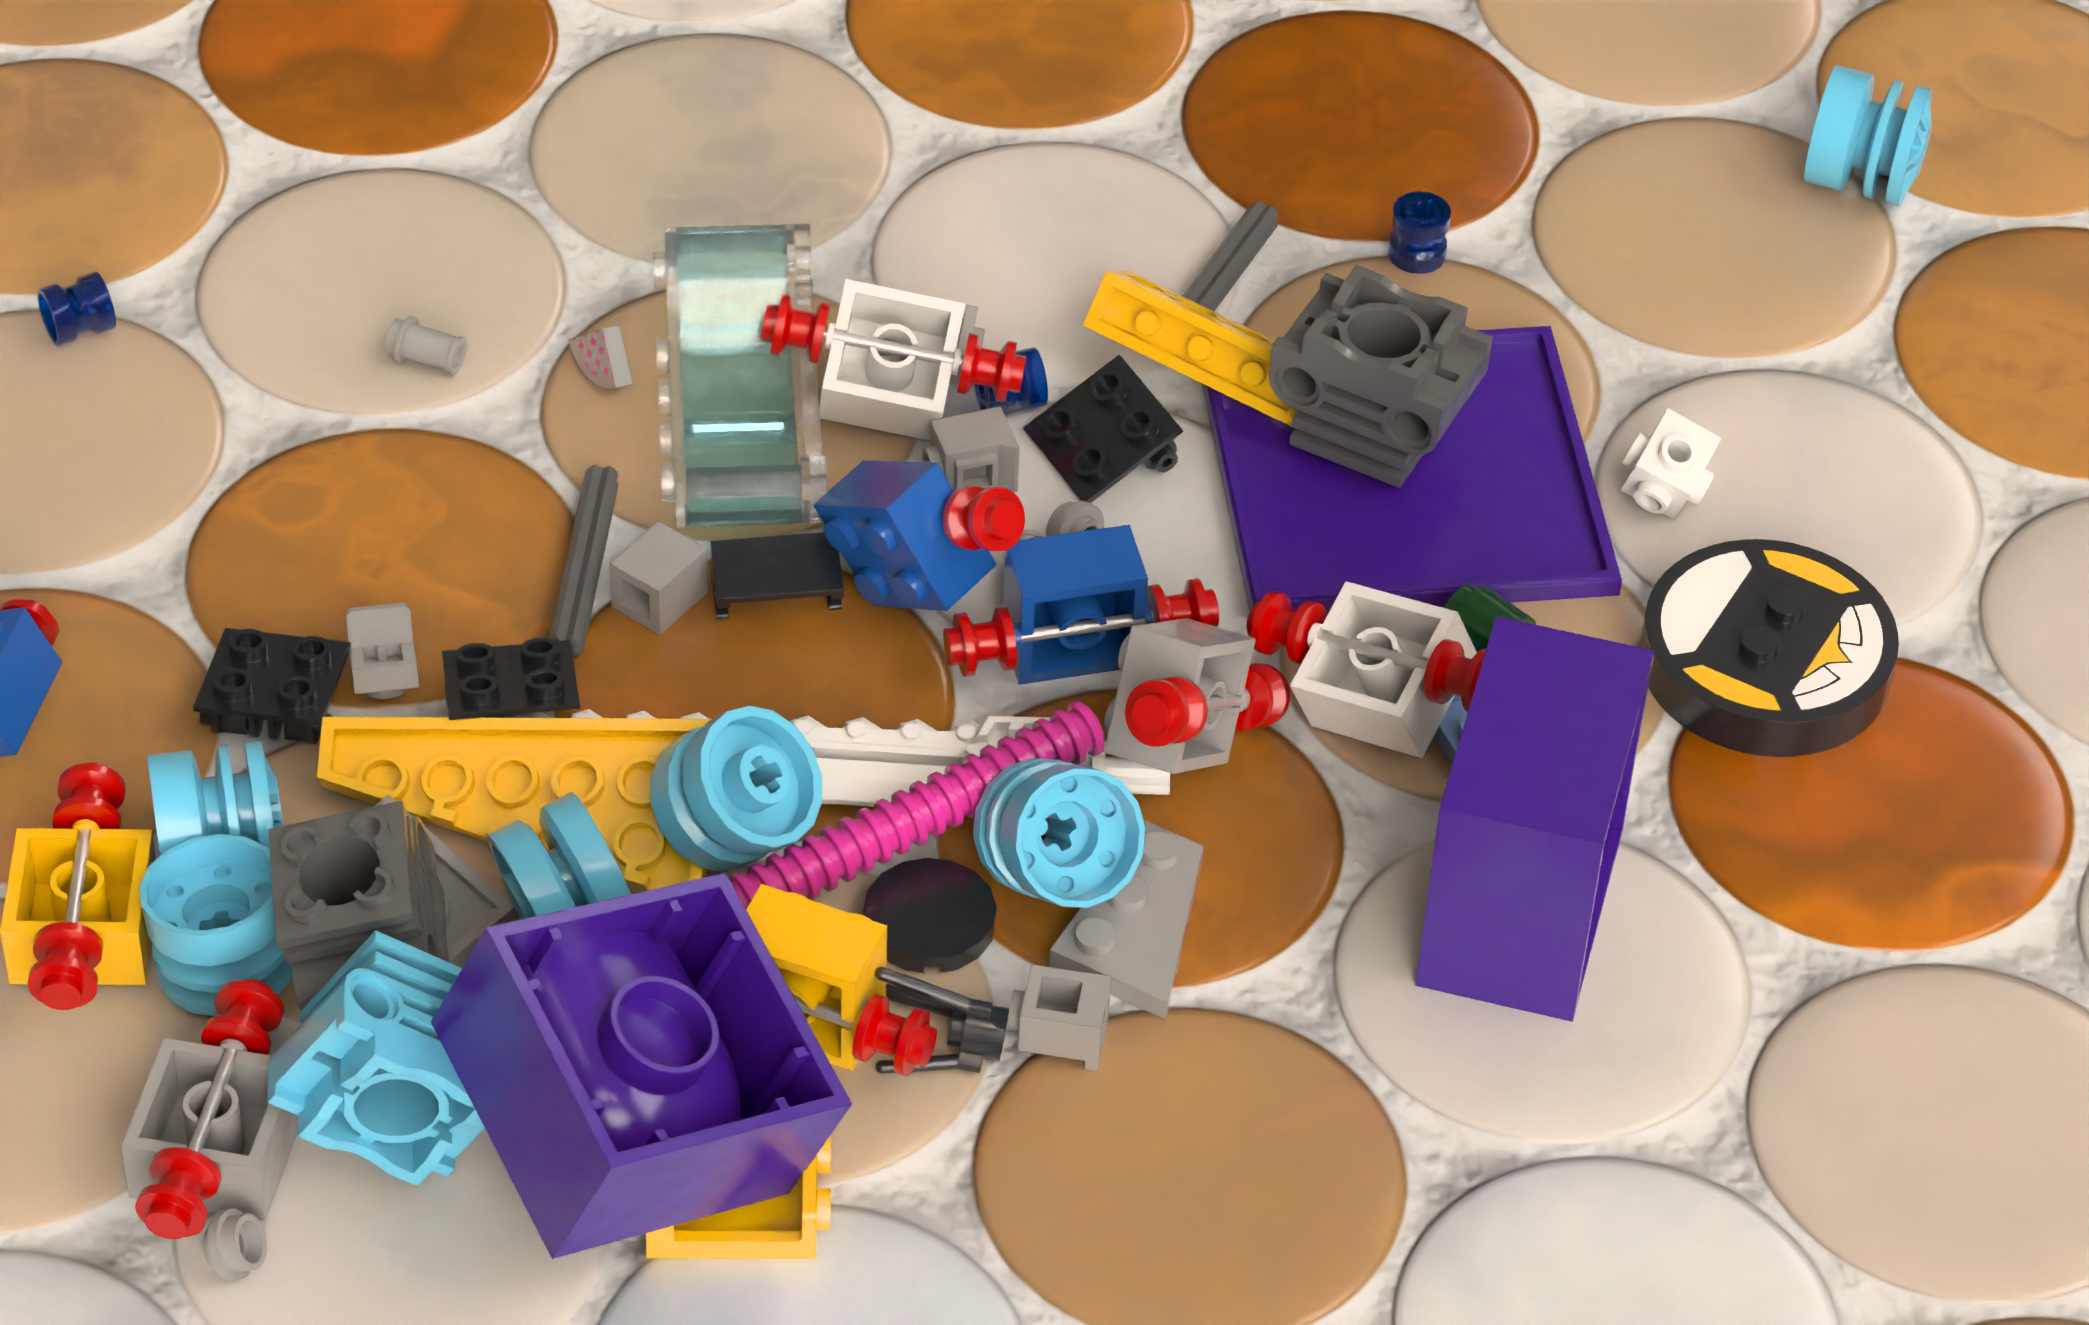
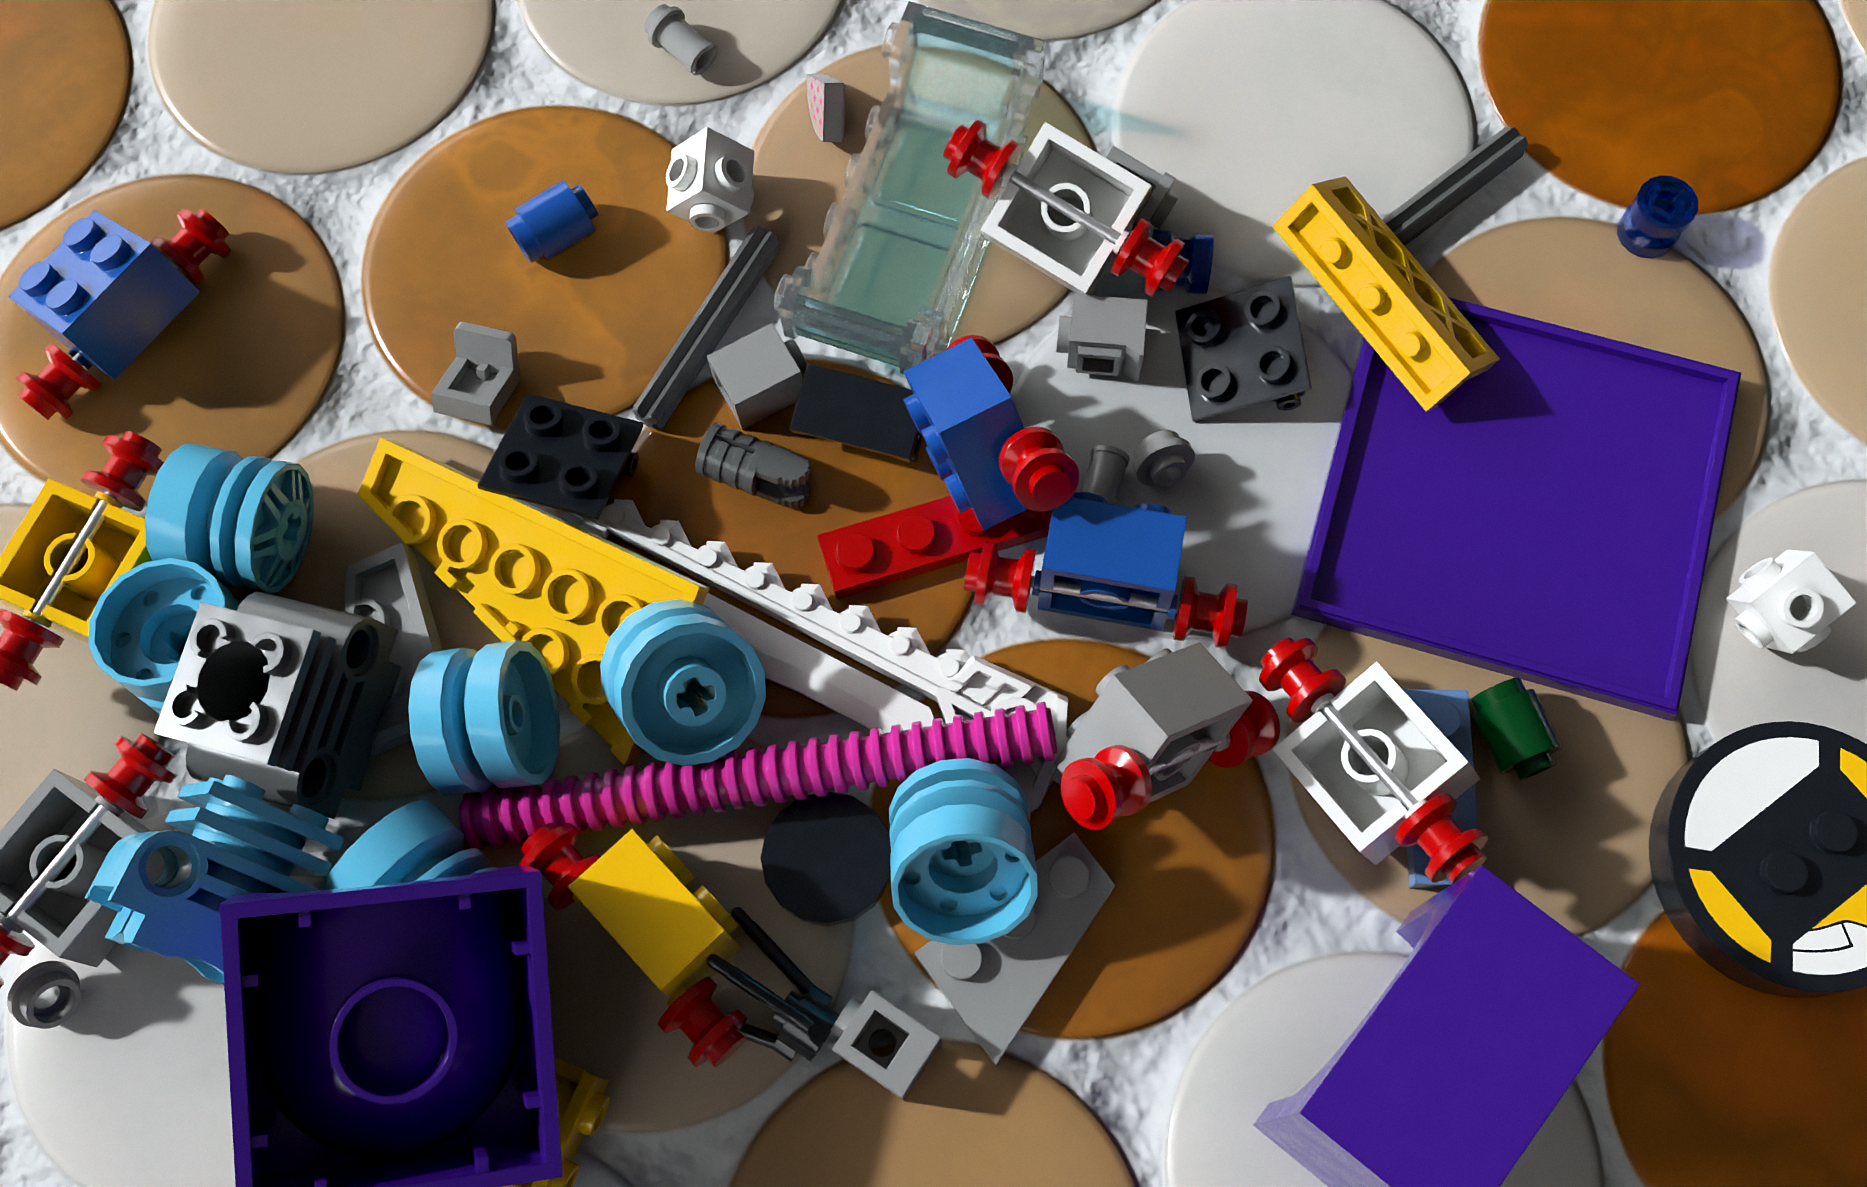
camera: 30 degrees right, 25 degrees up
(273, 680) = (370, 372): black hinge -> none
(384, 518) = (552, 221): none -> blue brick
(528, 439) = (710, 181): none -> white brick
(681, 646) = (753, 466): none -> dark grey hinge
(884, 658) = (917, 543): none -> red plate
(1376, 373) = (1528, 406): dark grey piece -> none

